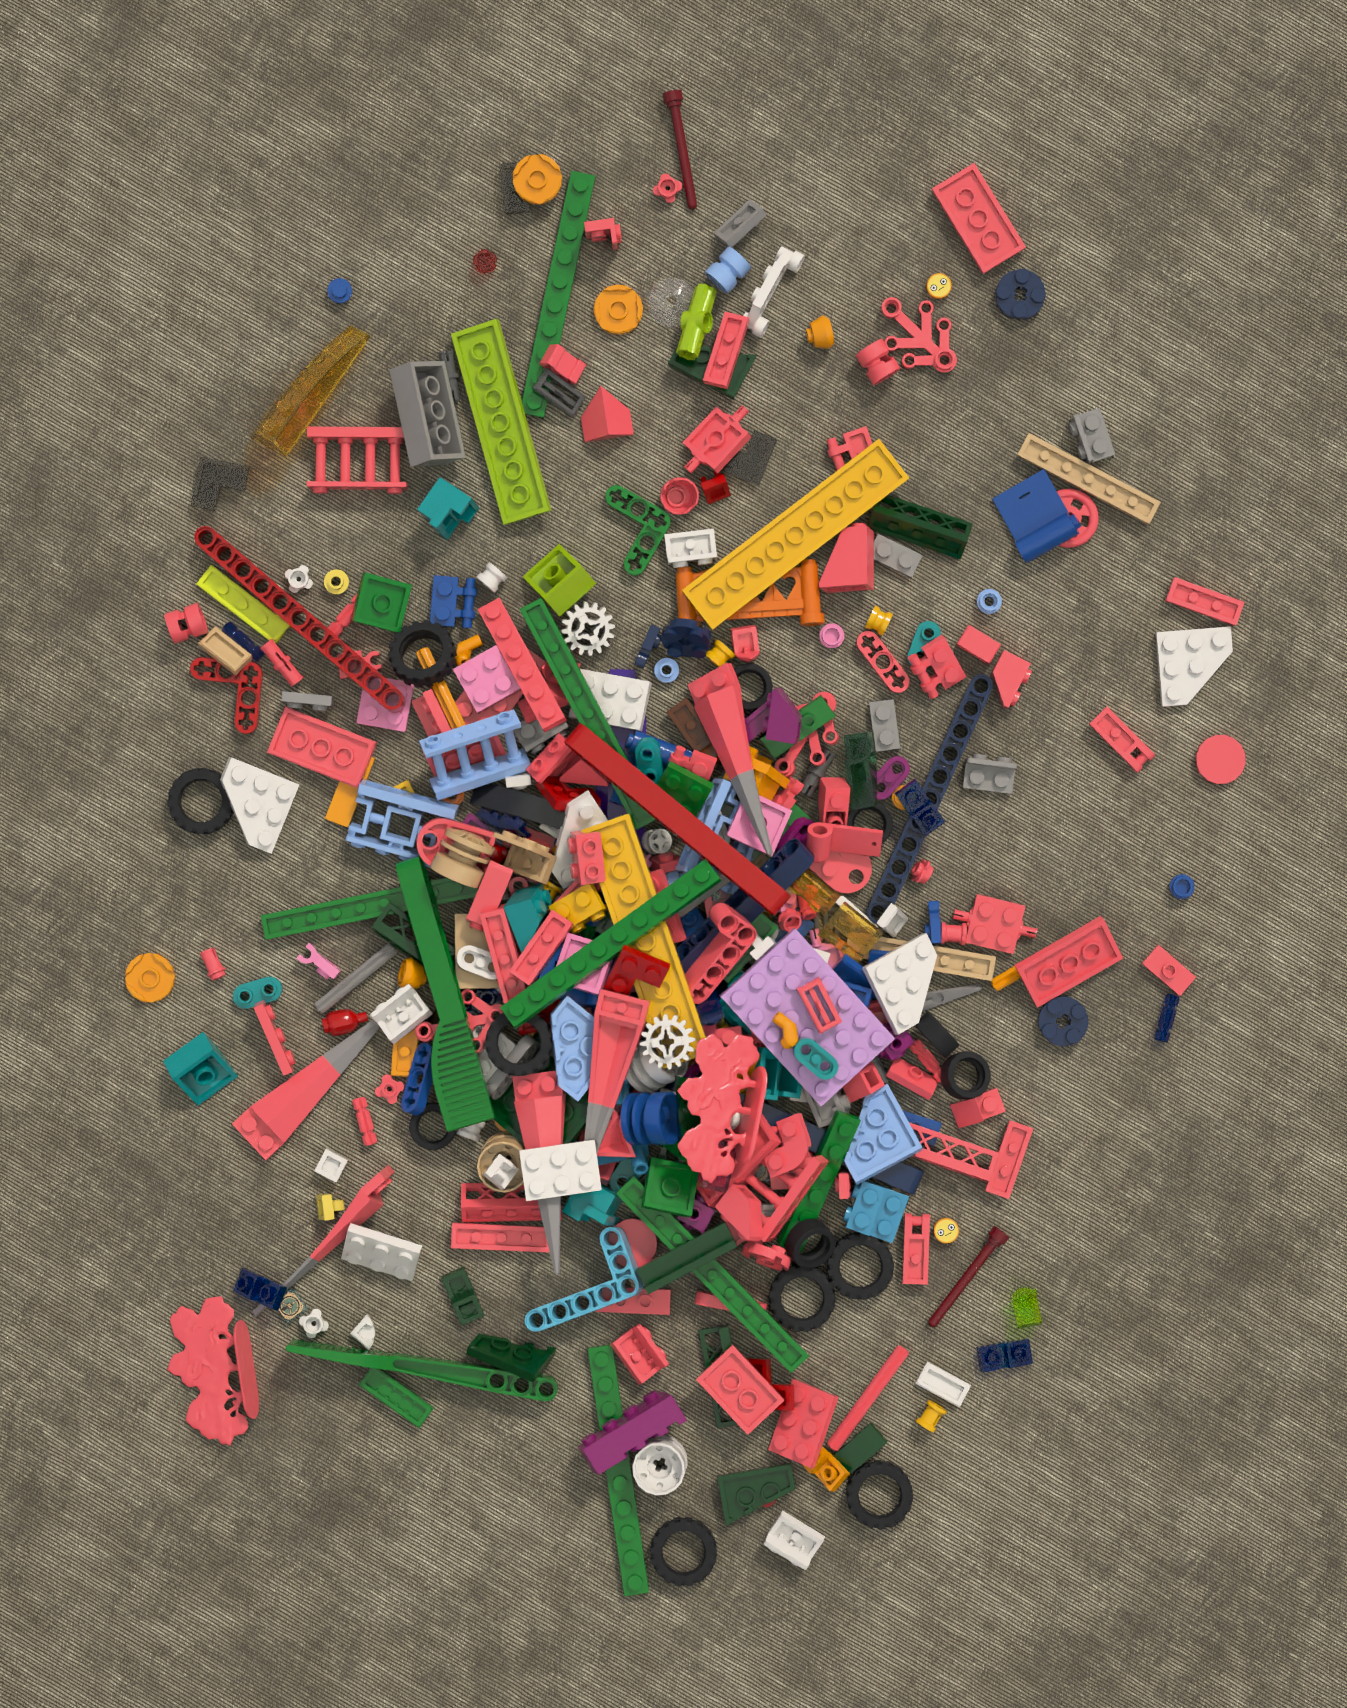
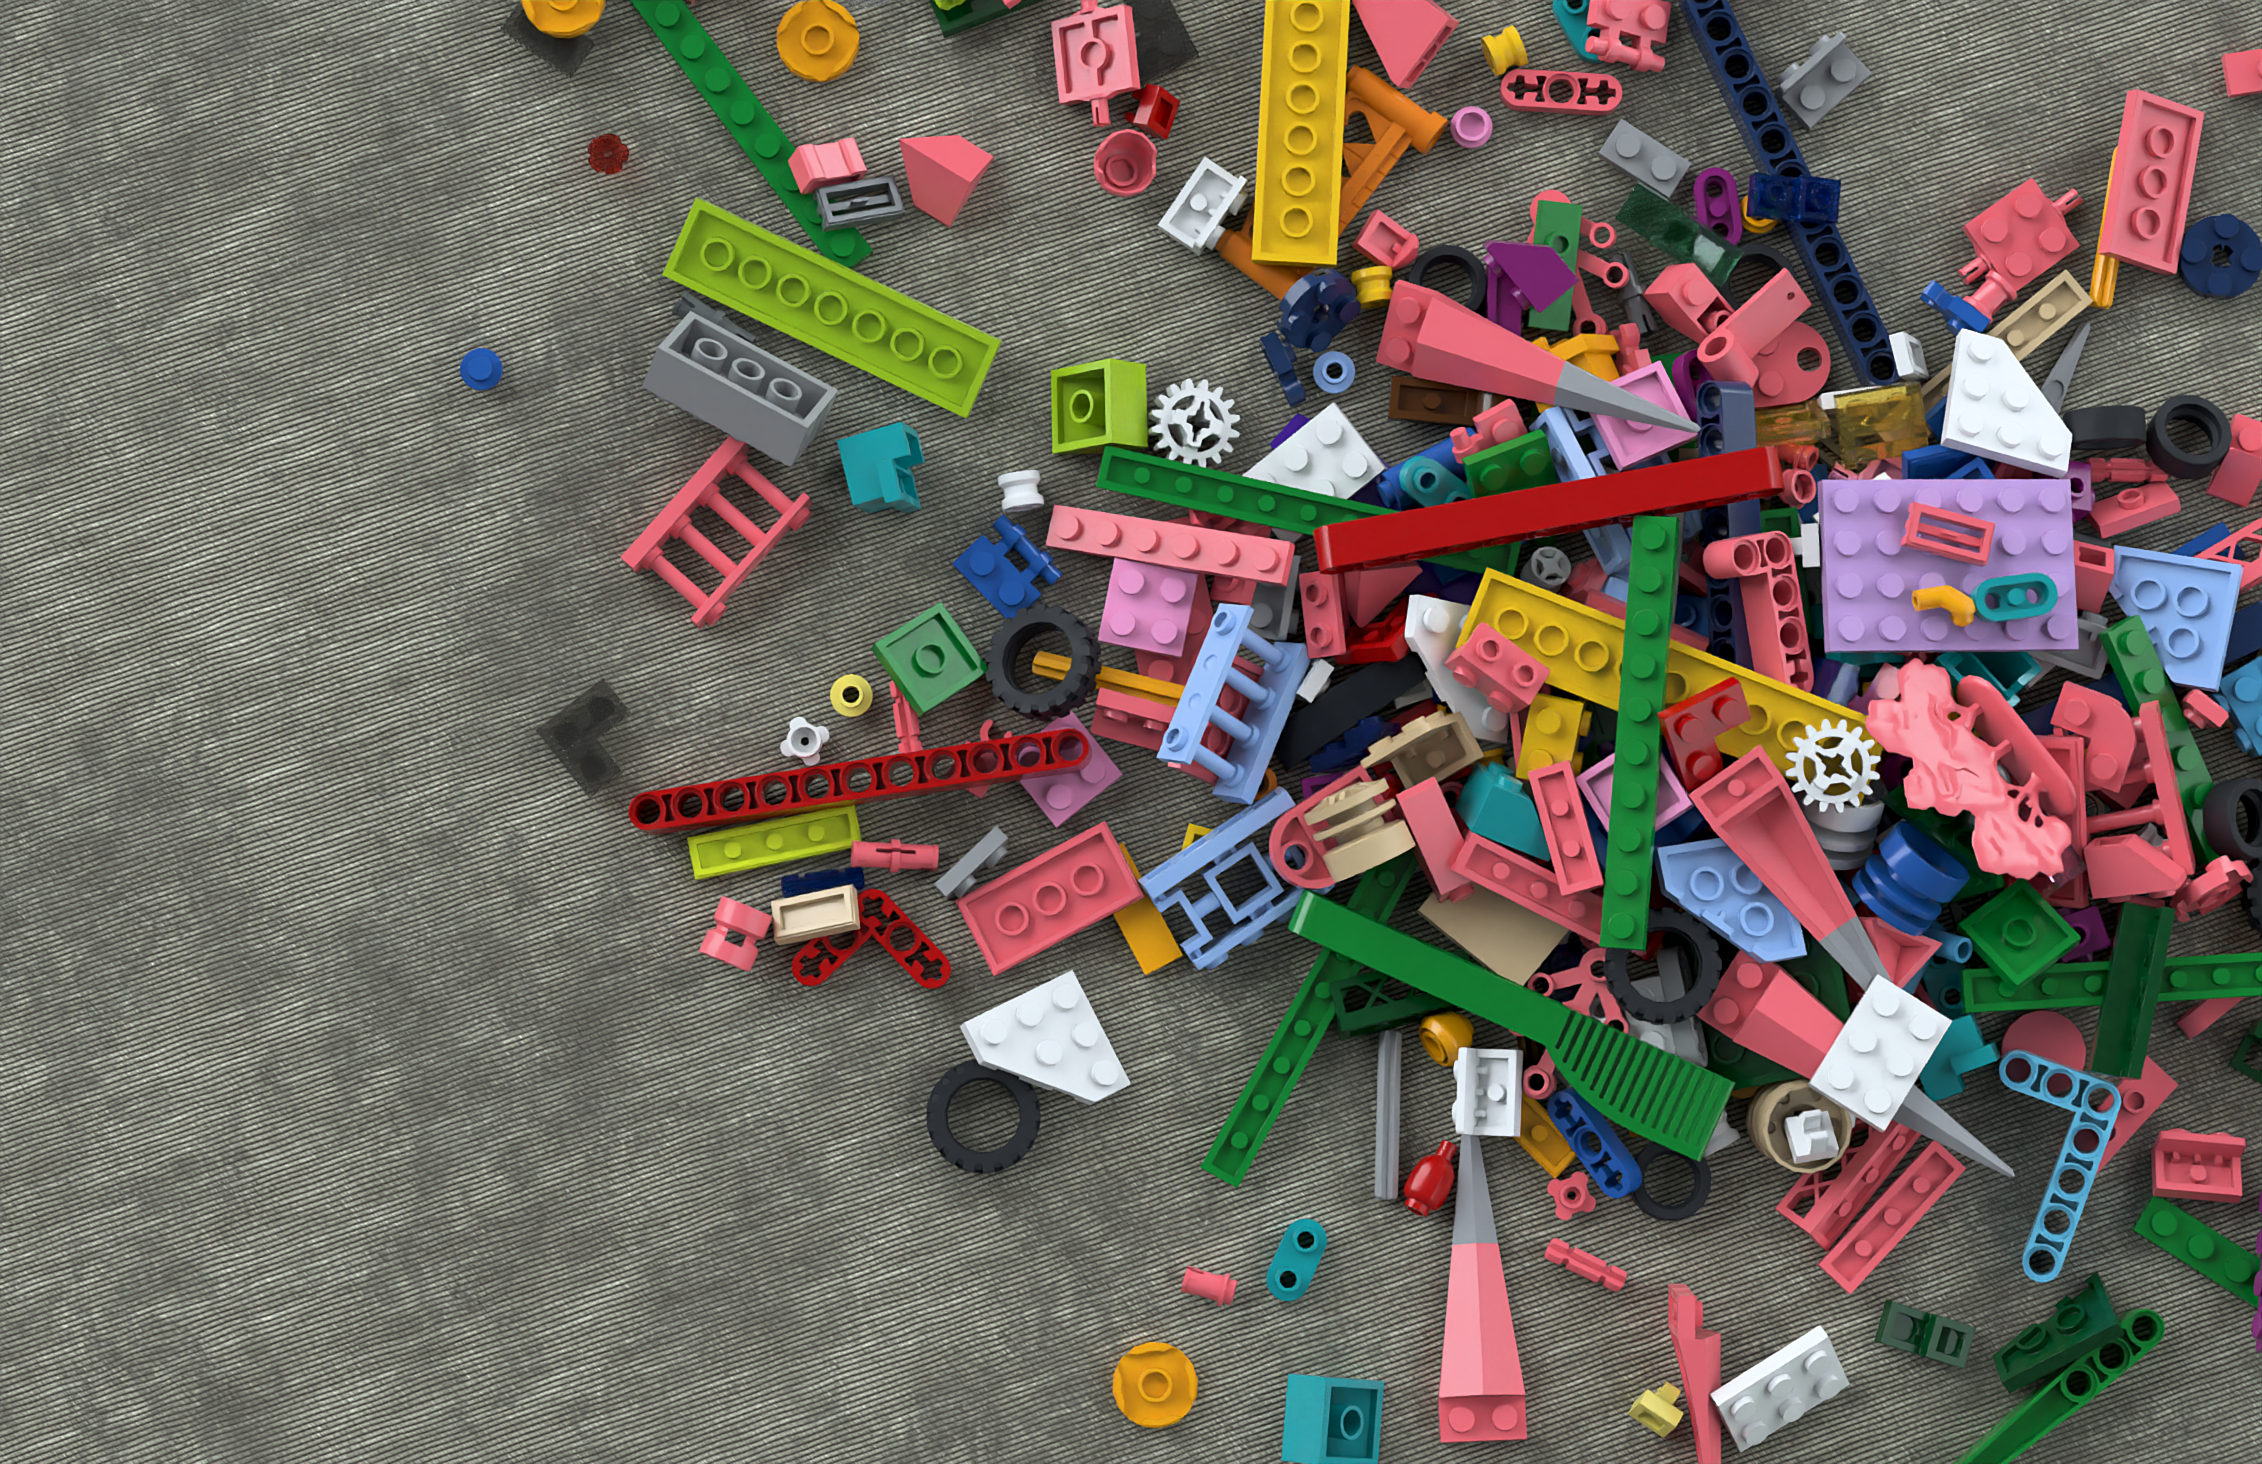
camera: 45 degrees left, 5 degrees down
(275, 1037) = (1376, 1284): coral plate -> none
(304, 396) = (577, 526): clear yellow wedge -> none
(325, 967) = (1340, 1141): bright pink plate -> none
(331, 1165) = (1607, 1358): white plate -> none
(465, 648) = (1081, 602): light orange arm -> none
(479, 965) = (1512, 929): white plate -> none
(648, 528) = (1132, 241): green beam -> none
(921, 871) = (1875, 270): coral plate -> none

